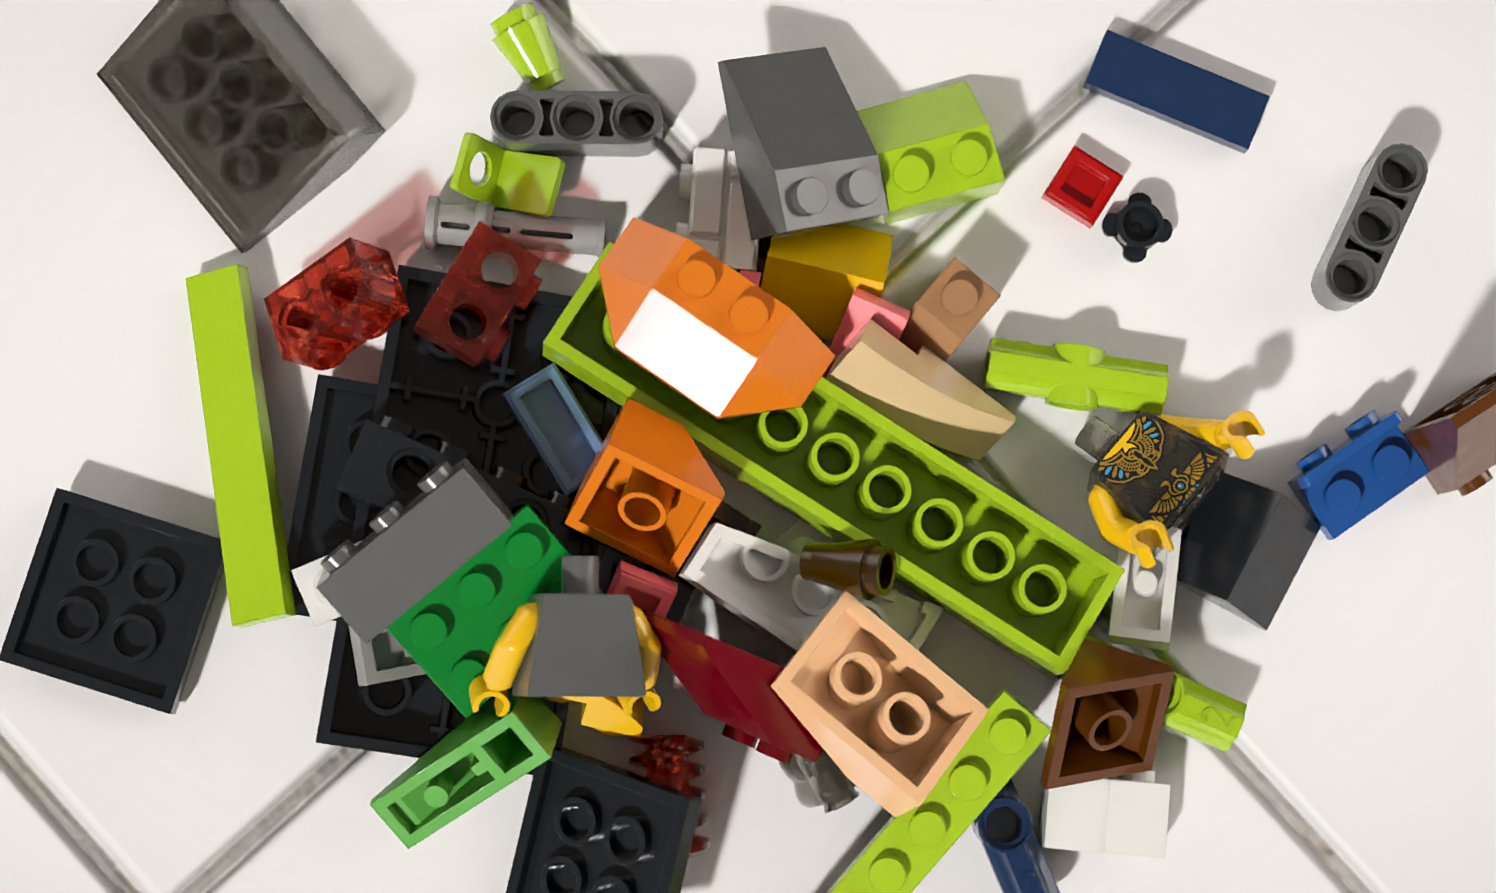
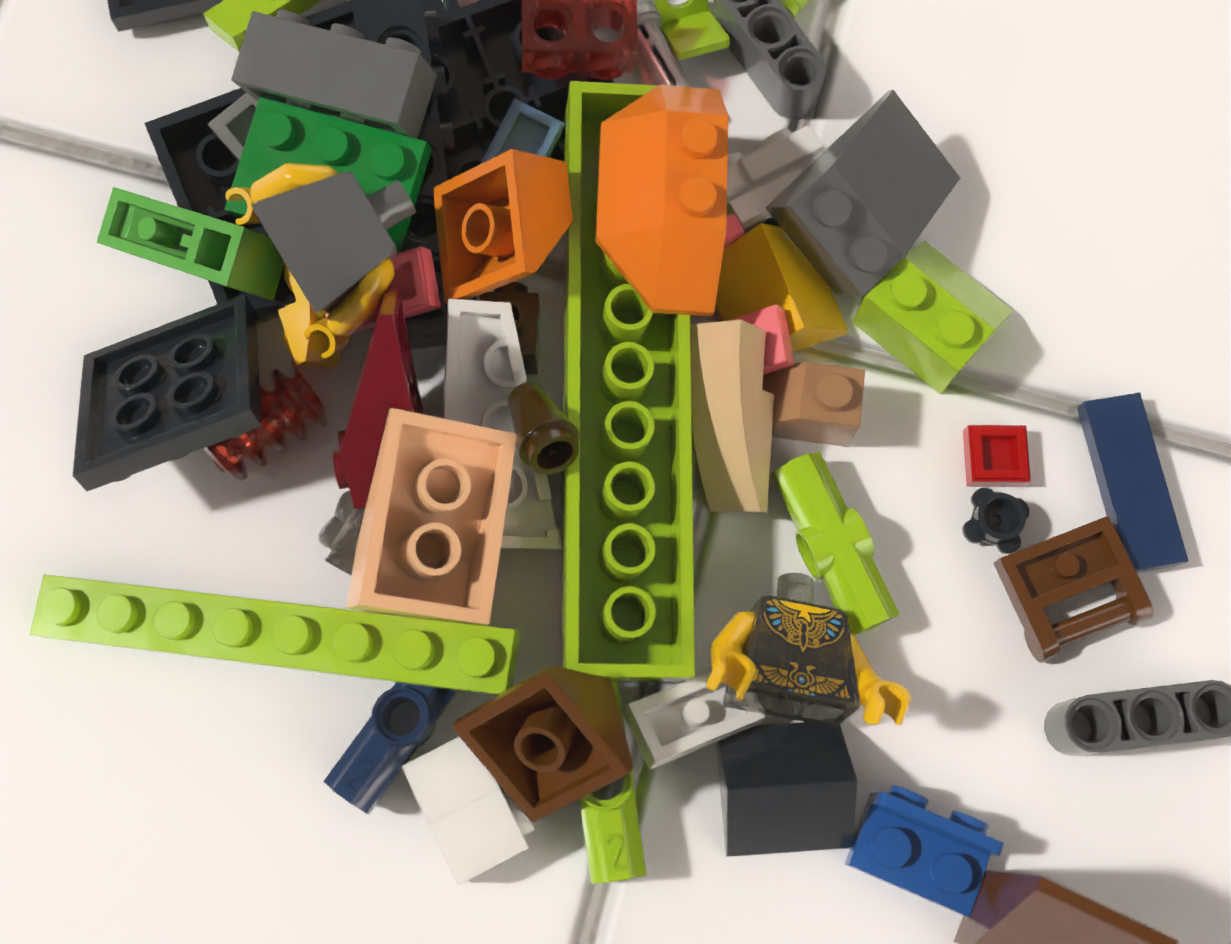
camera: 60 degrees right, 10 degrees down
(1213, 204) = (1064, 569): none -> reddish brown plate

